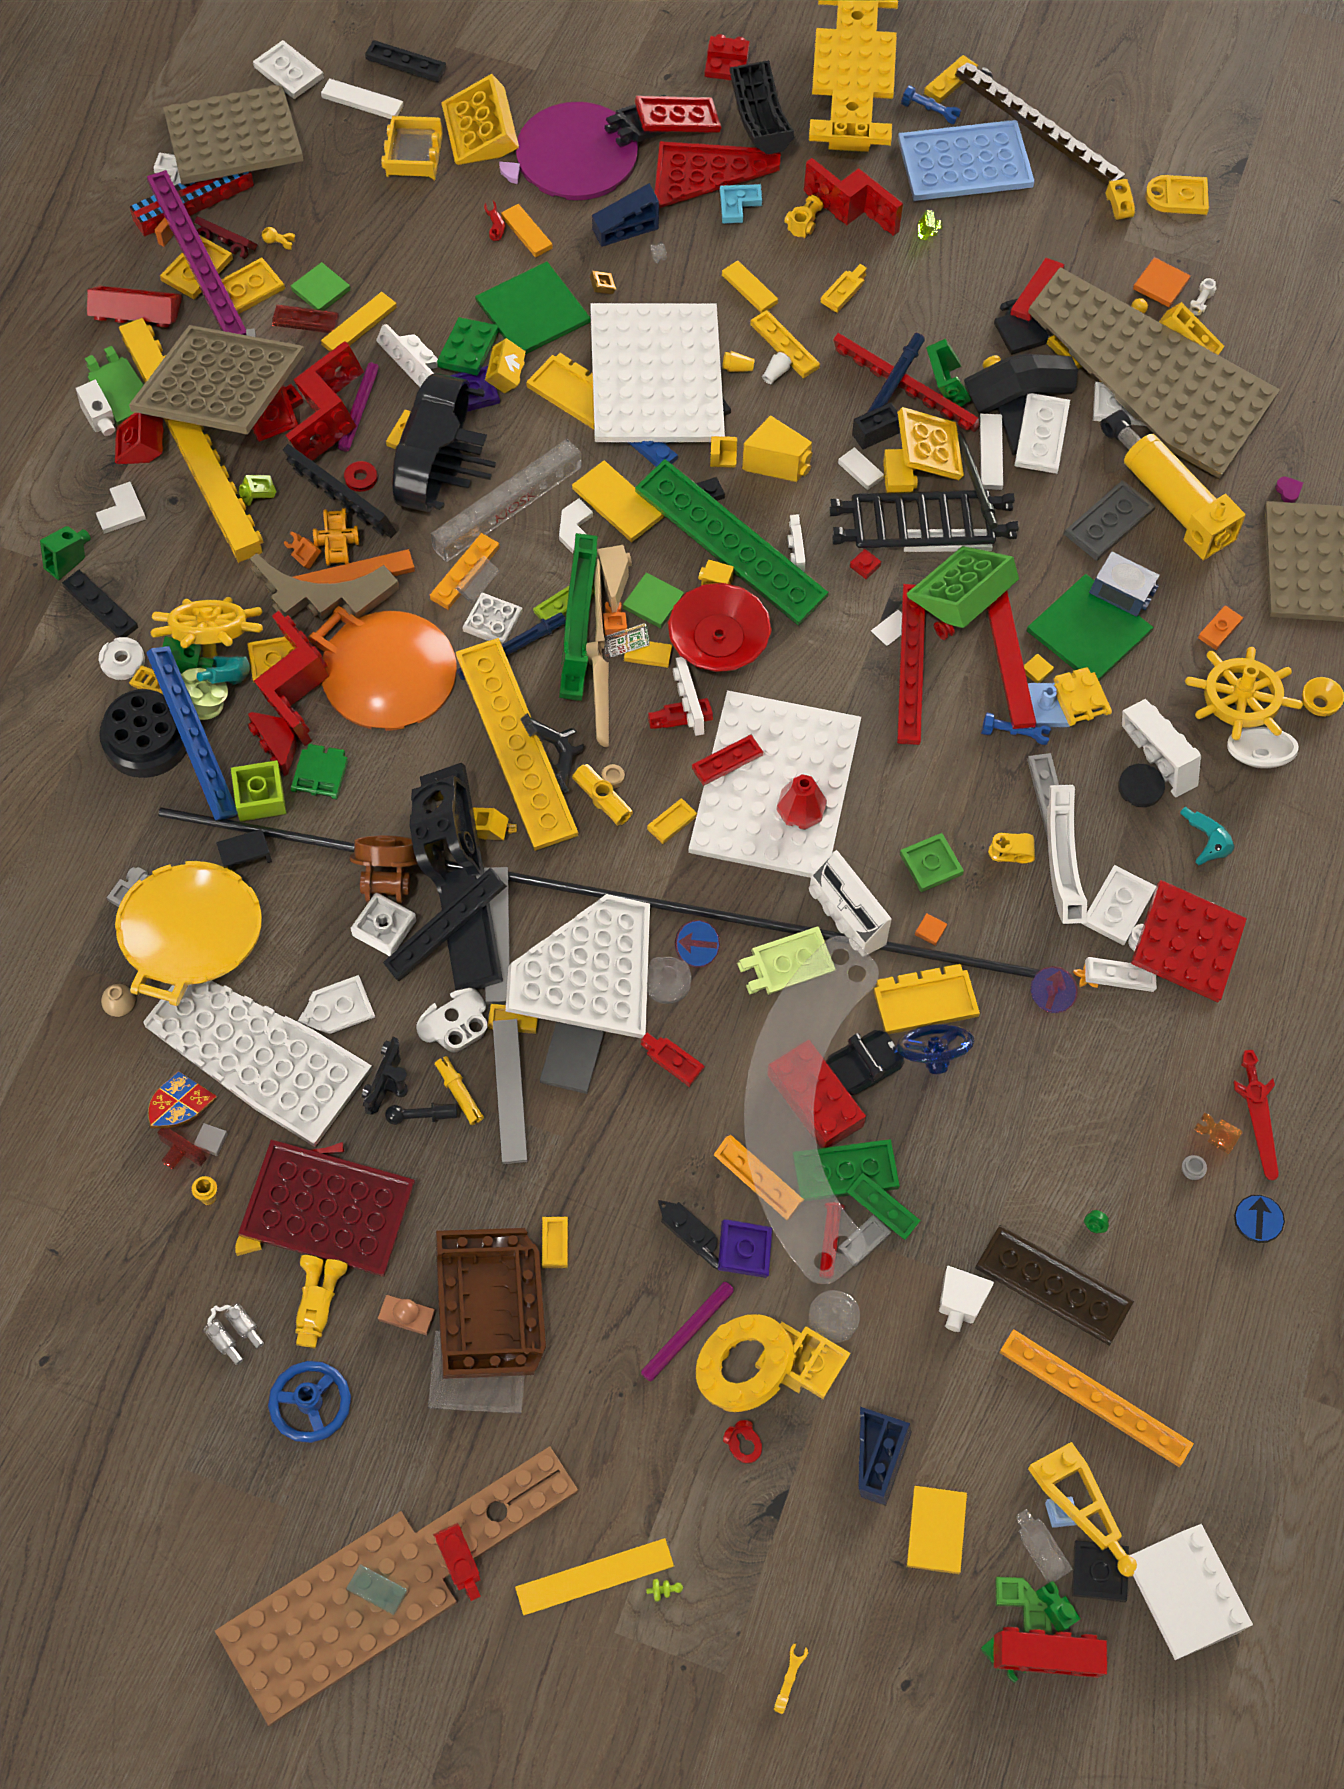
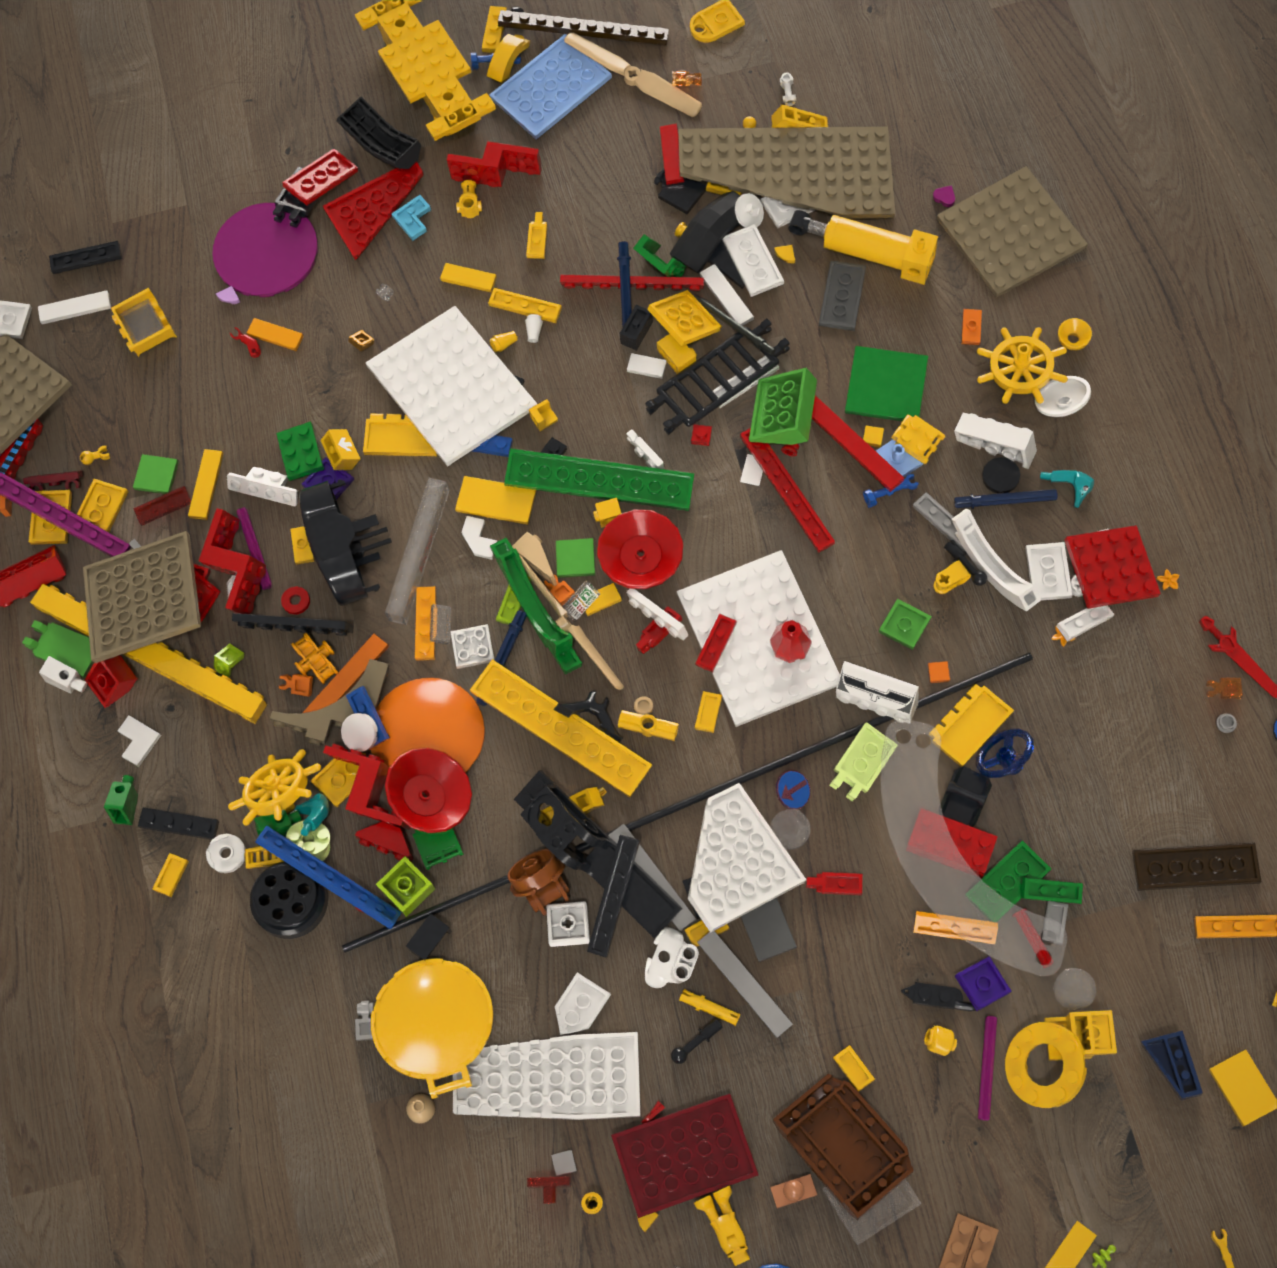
camera: 25 degrees left, 5 degrees up
(57, 645) = (170, 875): none -> yellow tile
(178, 1102) = (522, 1153): shield -> none
(322, 623) = (359, 732): none -> white tile
(340, 614) = (361, 703): none -> blue plate
(354, 698) = (437, 777): none -> red dish
(383, 1082) = (656, 1033): black shield -> none
(480, 122) = (178, 272): yellow slope -> none
(533, 308) = (324, 392): green tile -> none
(627, 217) = (343, 279): dark blue wedge -> none
(659, 1272) = (940, 1040): none -> yellow head
(724, 54) = (321, 110): red plate -> none
(746, 1429) = (1075, 1108): red piece -> none
(777, 451) = (584, 391): yellow slope -> none
(928, 225) = (561, 152): clear neon green tile -> none
(941, 105) = (505, 56): none -> yellow arch
(962, 1297) = (1147, 917): white torso -> none
(1042, 865) = (978, 577): none -> black pin
(1054, 989) = (1049, 660): piece -> none
(1064, 208) = (644, 80): none -> tan piece
(1074, 383) = (749, 210): none -> white piece
(1082, 447) = (785, 253): none -> yellow tile
(1097, 1221) = (1193, 804): green plate -> none
(1104, 227) = (683, 78): none -> clear orange plate
(1121, 199) = (680, 50): yellow leg -> none
(1125, 584) = (889, 337): brick -> none
(1128, 809) = (1005, 498): none -> dark blue axle
(1161, 282) = (752, 95): orange tile -> none
(1241, 993) = (1169, 580): none -> light orange plant

